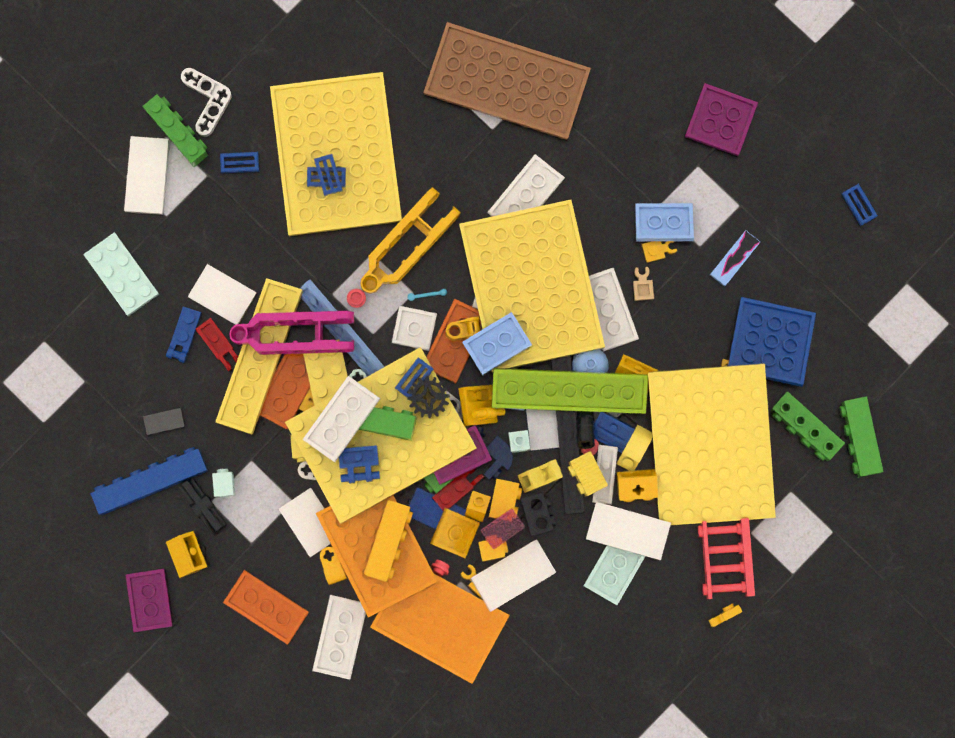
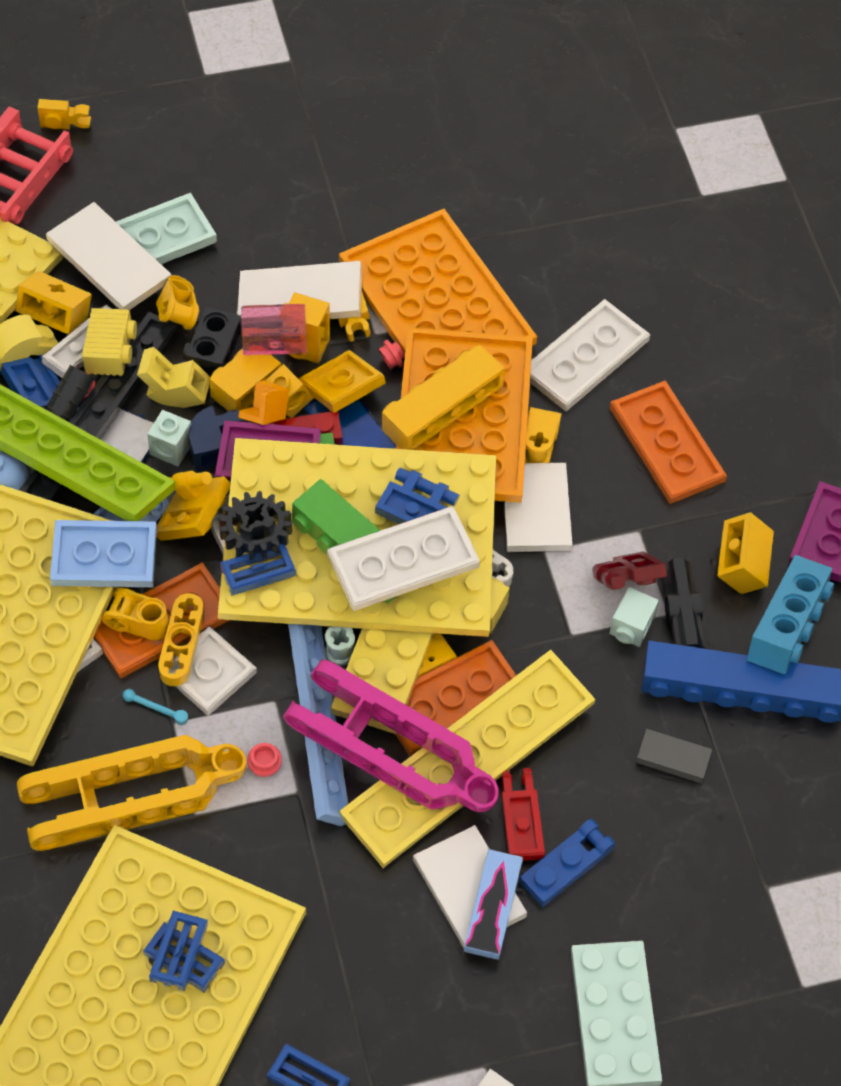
camera: 150 degrees left, 25 degrees down
(145, 498) = (790, 615): none -> dark azure brick
(204, 289) = (493, 904): none -> tile
(234, 510) = (638, 567): none -> dark red plate
(434, 316) = (187, 652): none -> yellow beam
(477, 482) = (268, 404): none -> light orange panel
(569, 522) = (178, 302): none -> yellow piece

